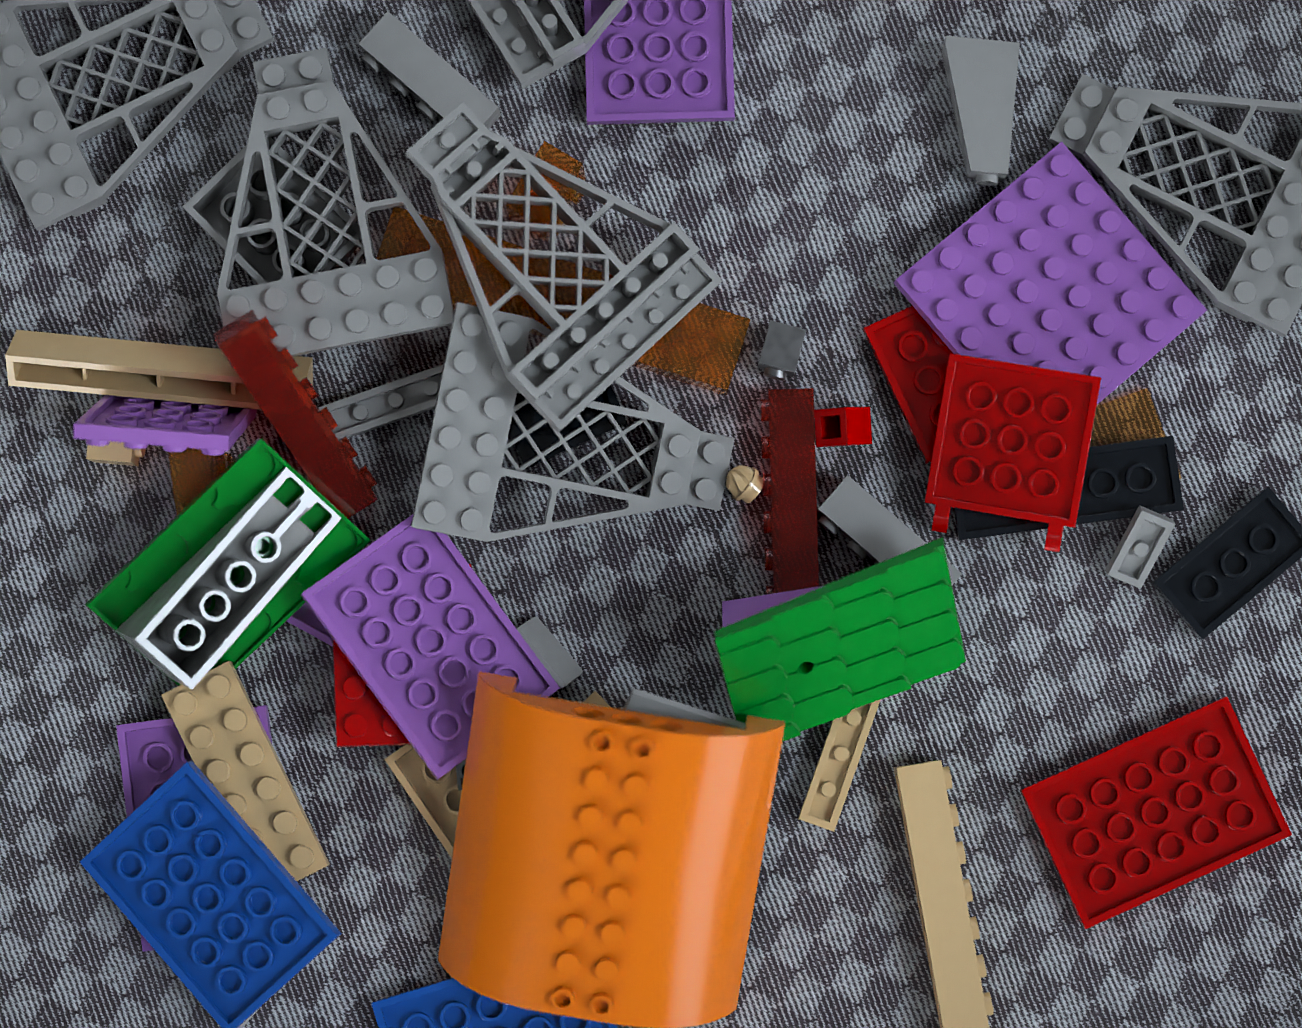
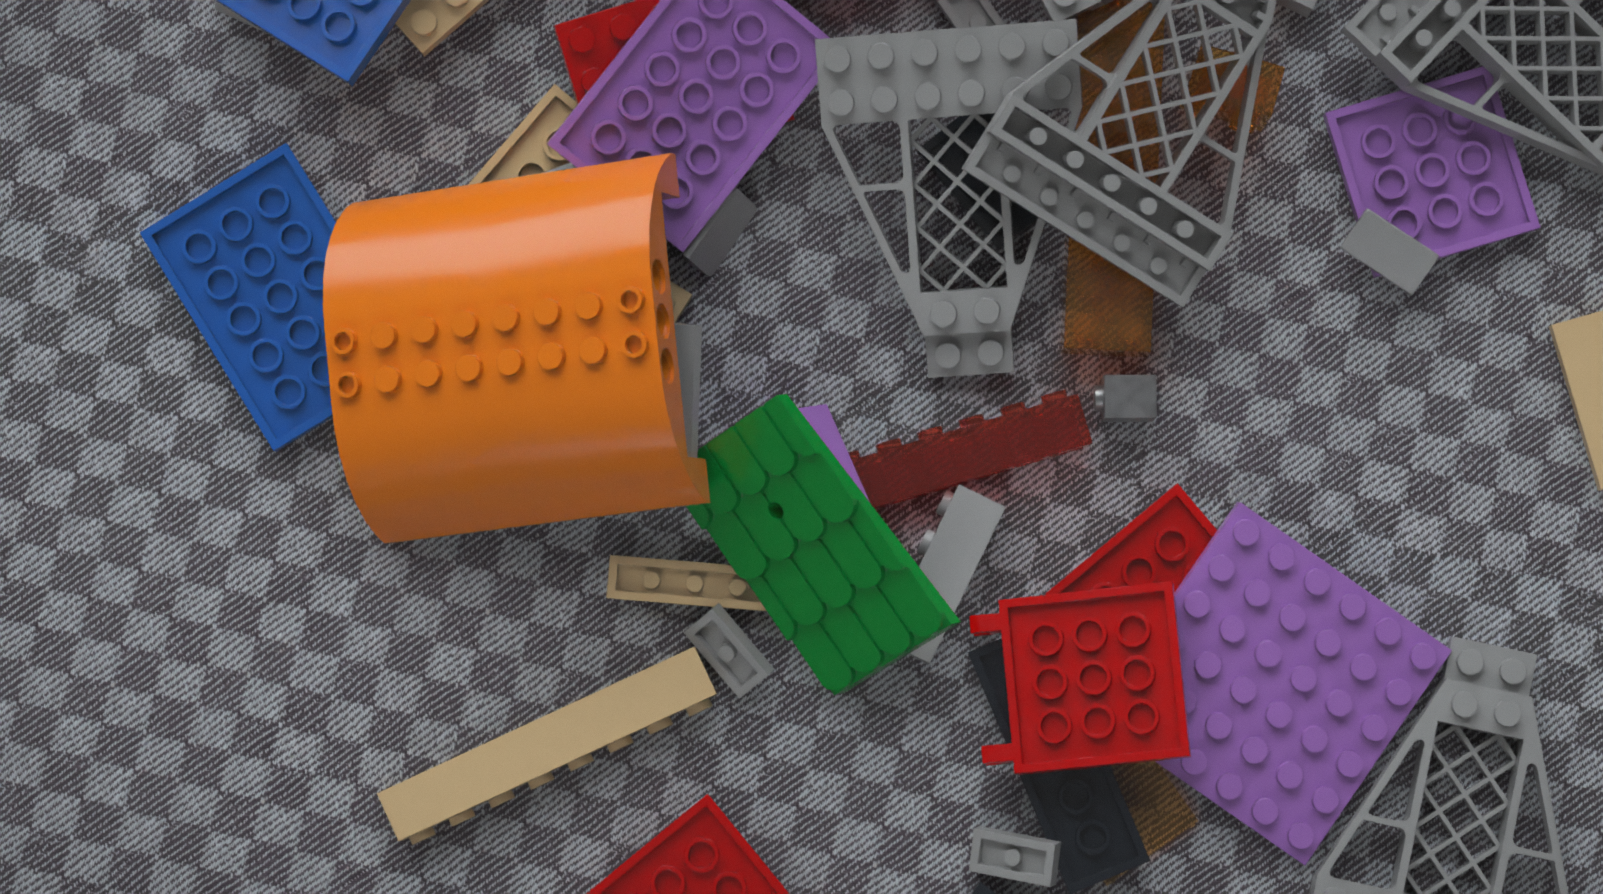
camera: 70 degrees right, 0 degrees up
(718, 100) = (1389, 251): none -> light grey slope
(744, 483) = (966, 396): tan plate -> none
(843, 426) = (1058, 488): red brick -> none
(905, 739) = (729, 650): none -> light grey plate
(982, 96) = (1478, 549): light grey slope -> none

